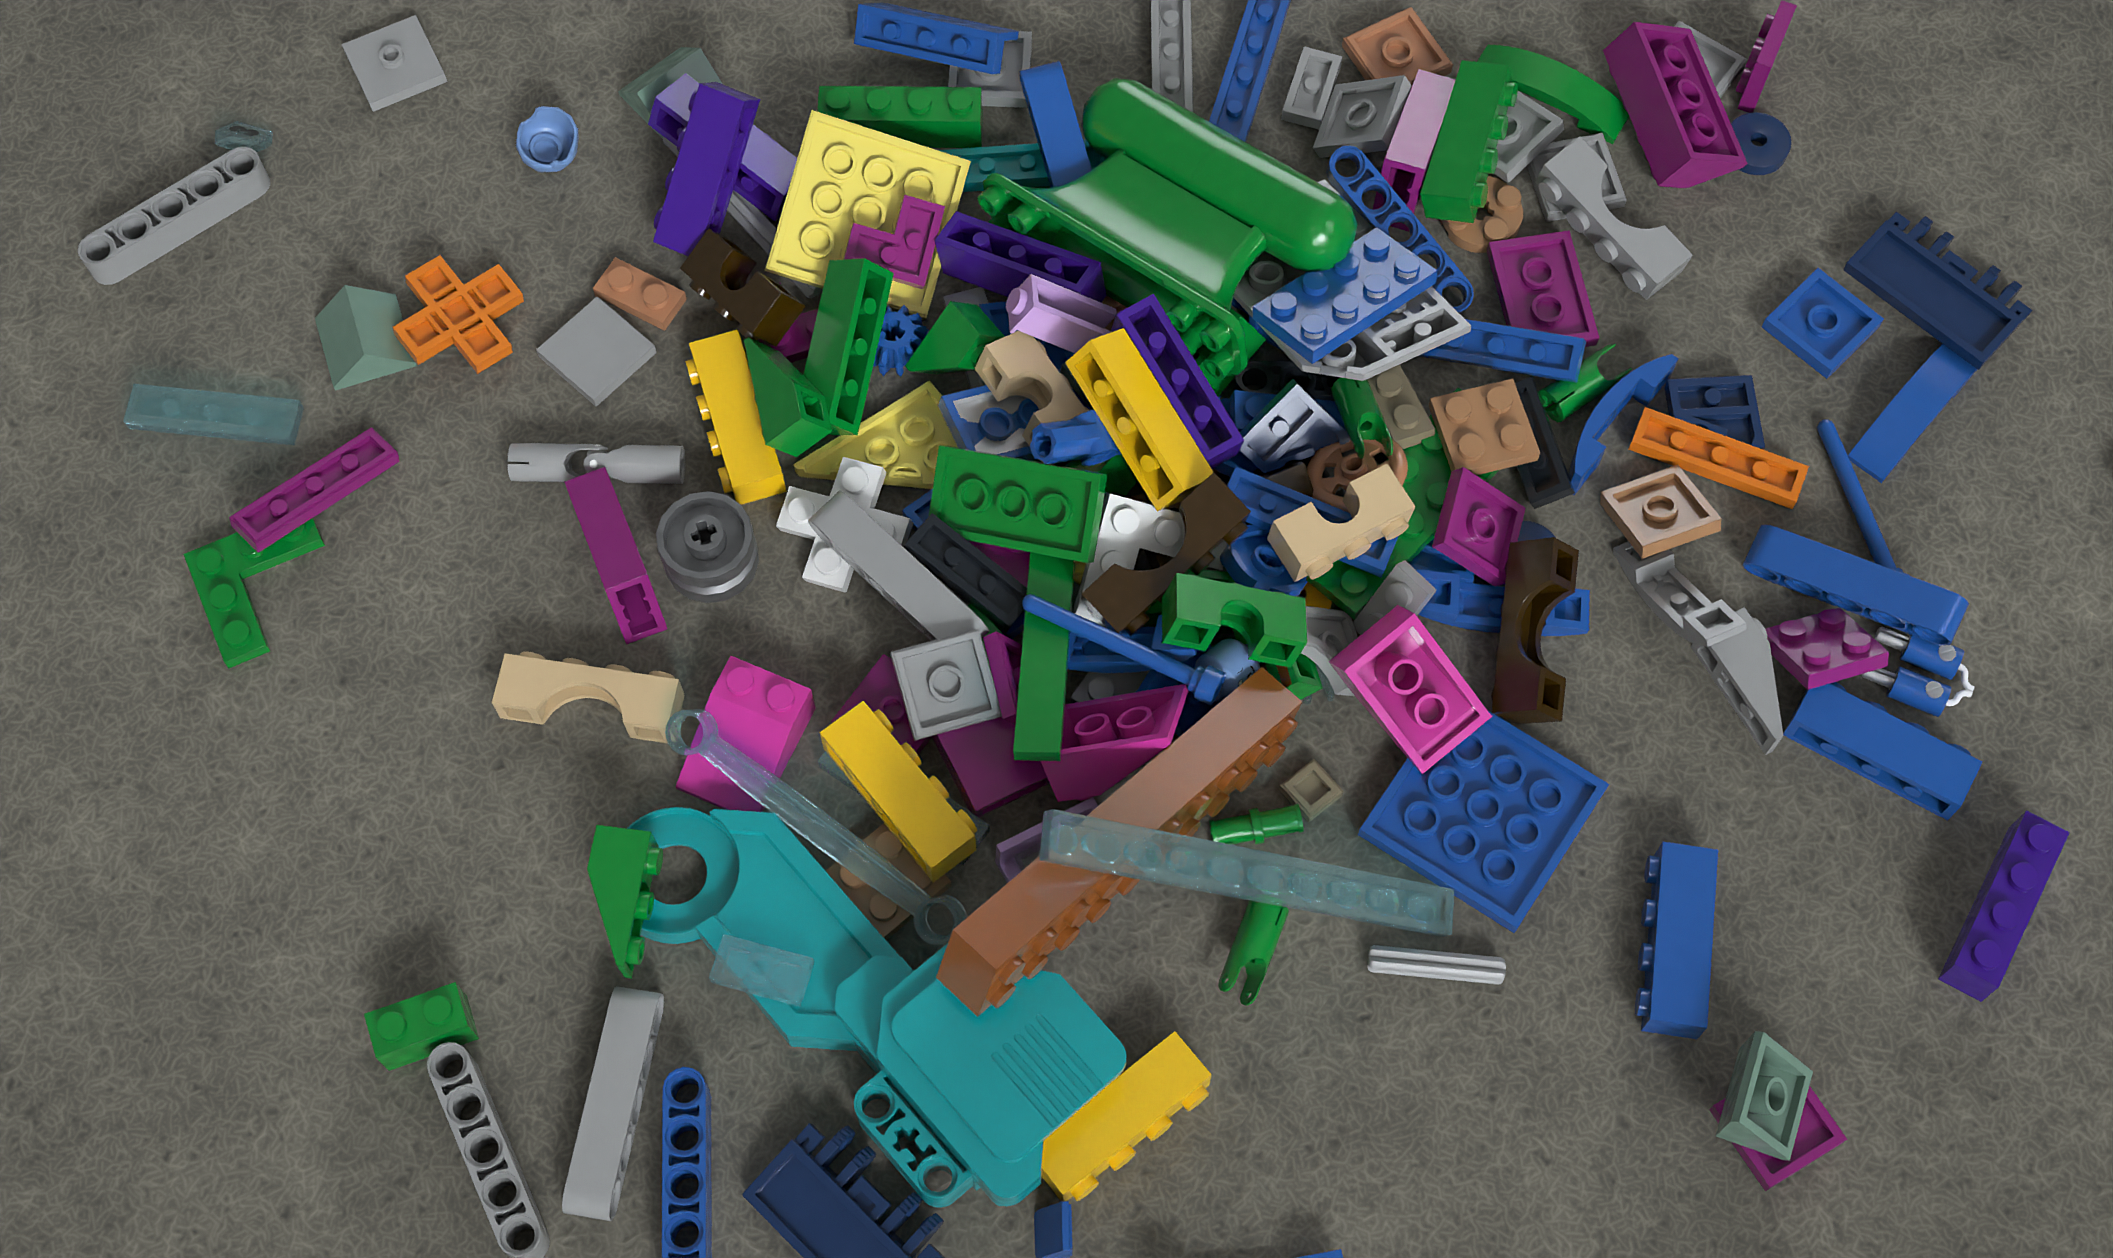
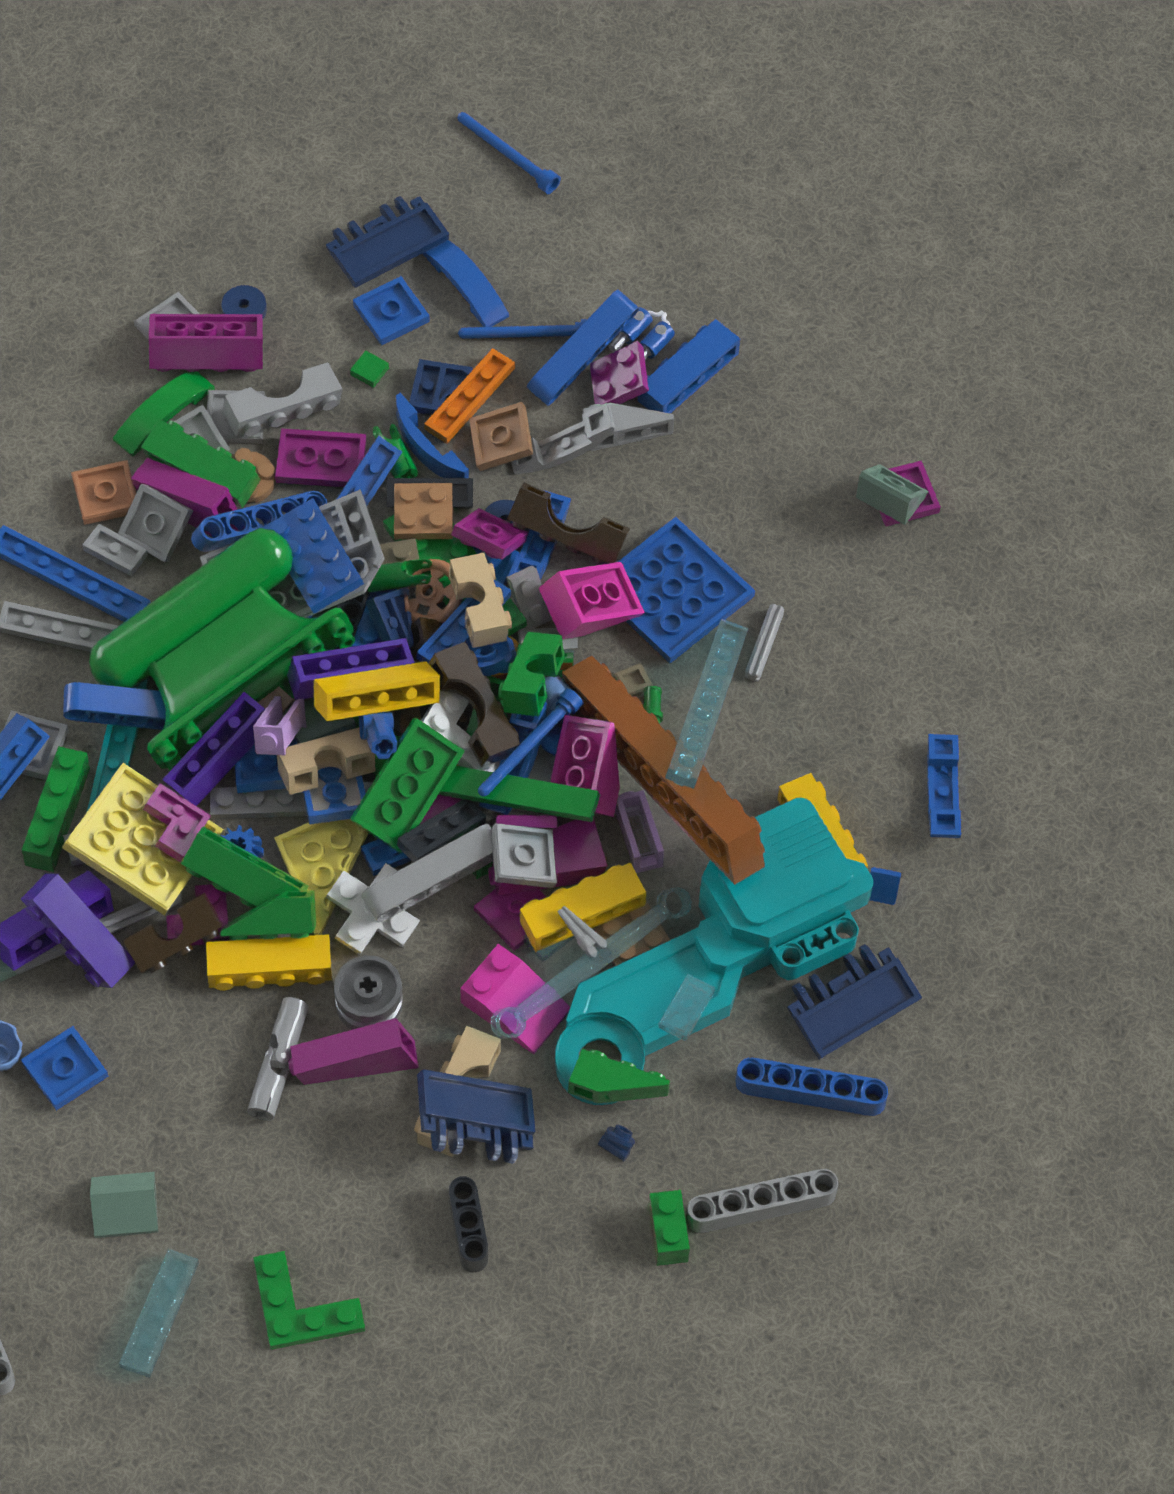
camera: 80 degrees left, 5 degrees down
(314, 489) = (246, 1246): magenta tile -> none
(368, 752) = (468, 1210): none -> black beam
(458, 314) = (127, 1131): orange plate -> none
(537, 223) = (64, 1068): none -> blue plate
(548, 717) = (483, 1107): none -> dark blue hinge
(556, 930) = (617, 1141): none -> dark blue plate
(596, 351) = (182, 1047): light grey tile -> none
(613, 1104) = (745, 1121): light grey beam -> none
(639, 293) = (143, 1011): nougat plate -> none
(841, 797) = (583, 933): none -> light grey piece
(954, 341) = (265, 802): green slope -> none
(1253, 948) = (736, 739): green piece -> none
(1678, 940) = (782, 509): blue brick -> none
(1715, 321) = (369, 369): none -> green tile
(1763, 55) = (190, 277): magenta plate -> none
(2003, 906) = (802, 339): dark purple brick -> none

